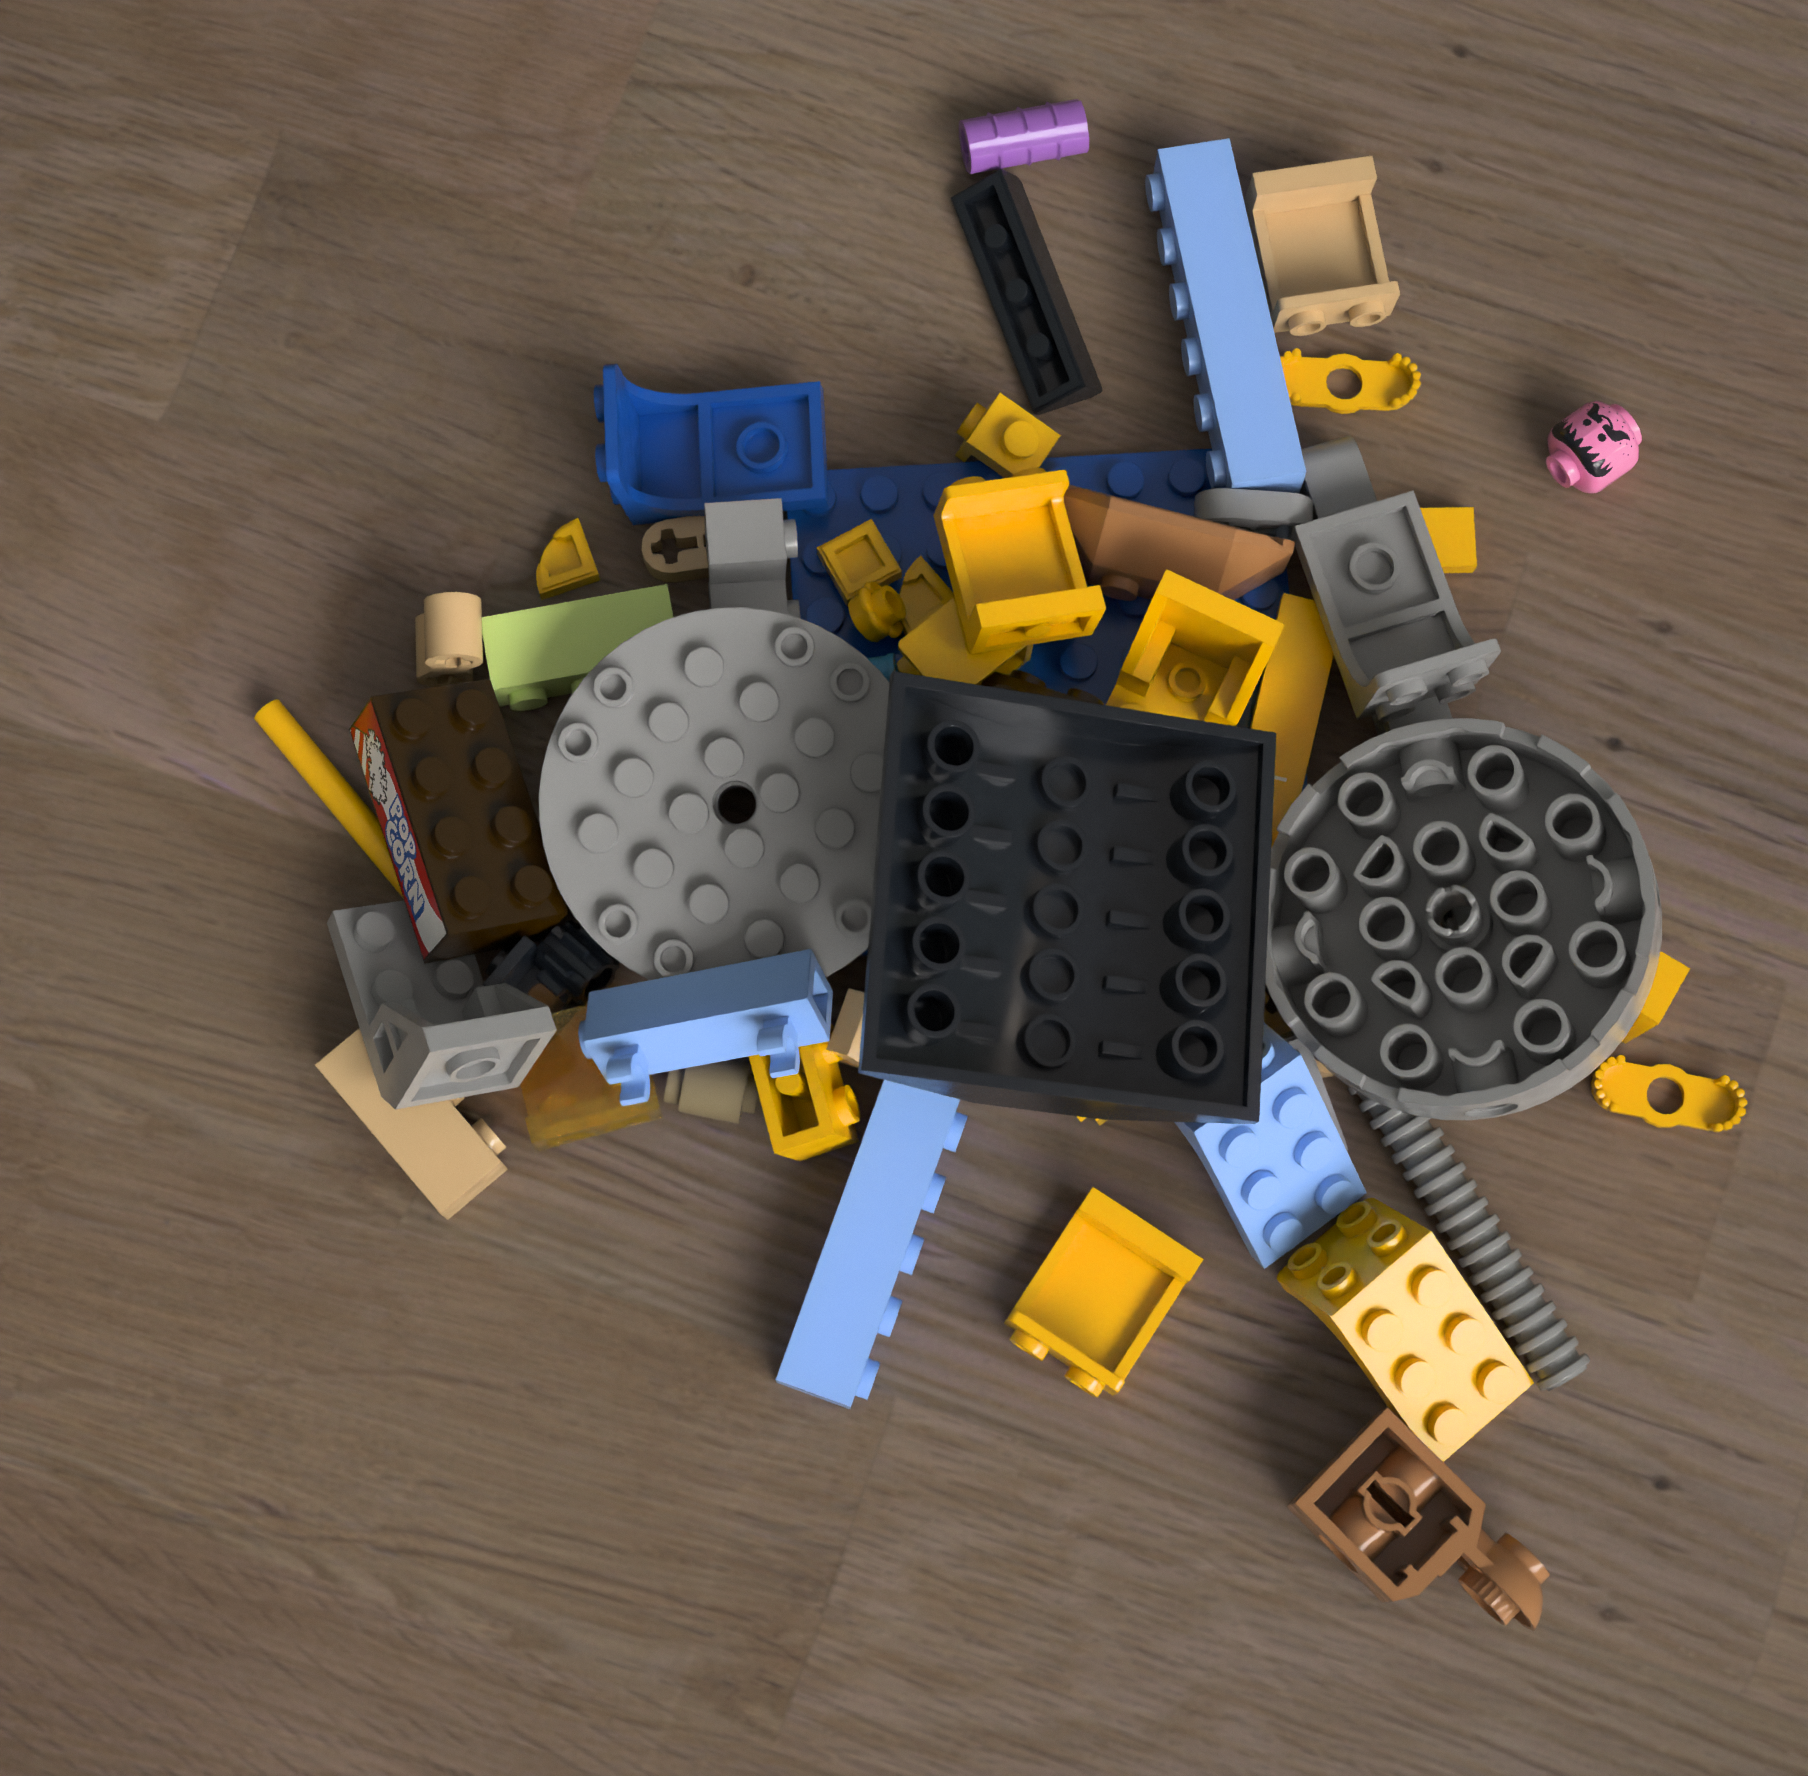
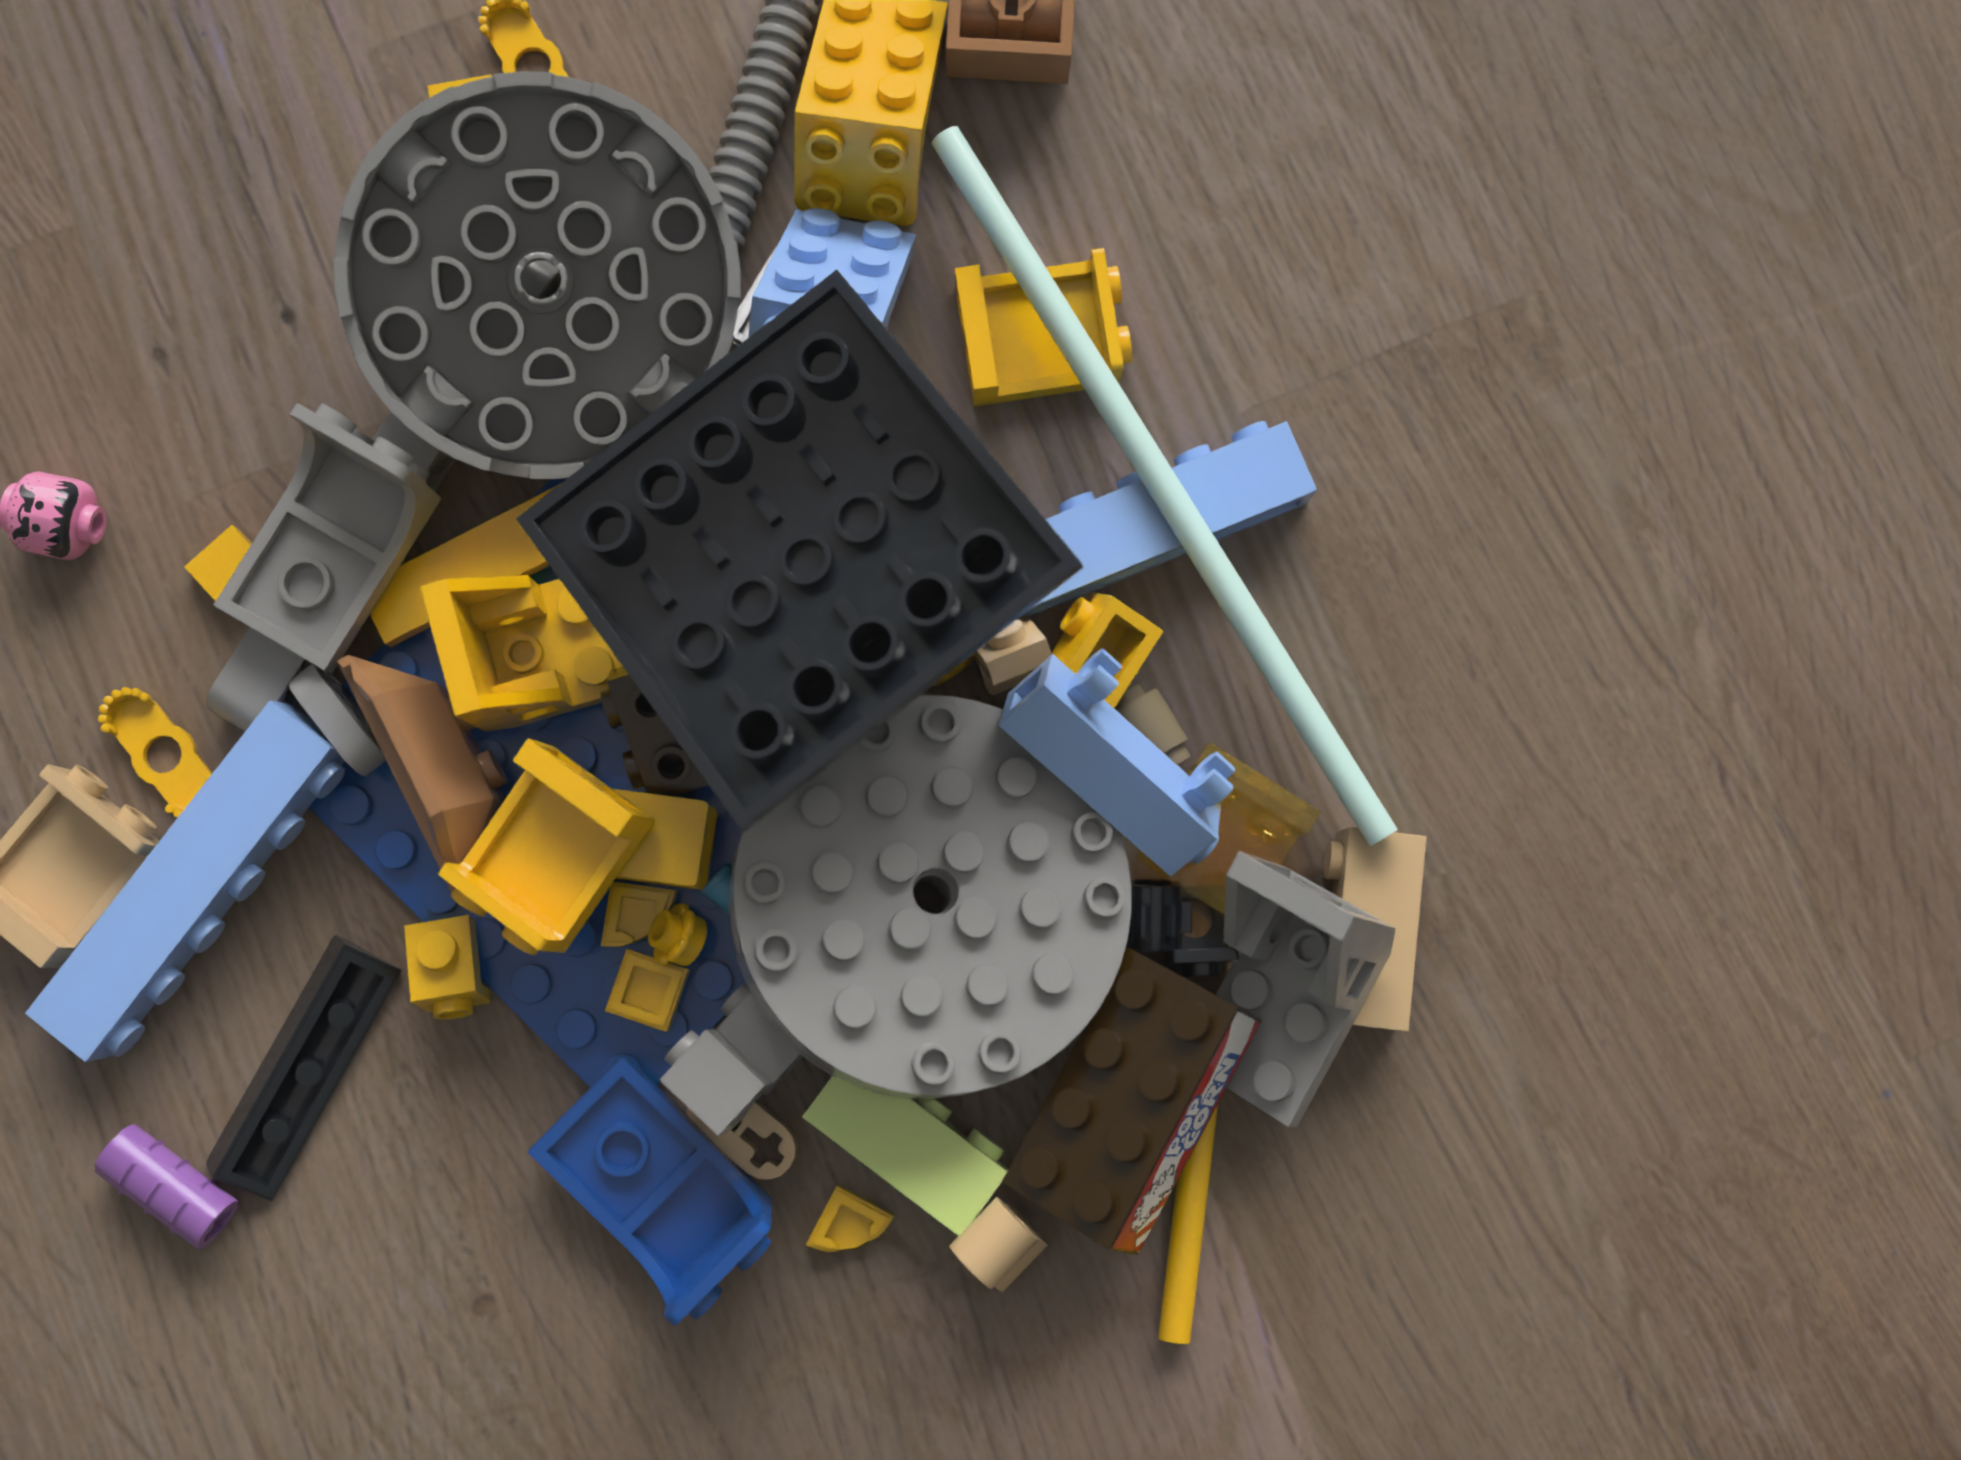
camera: 130 degrees left, 5 degrees up
(892, 1259) = (1164, 487): none -> light aqua piece

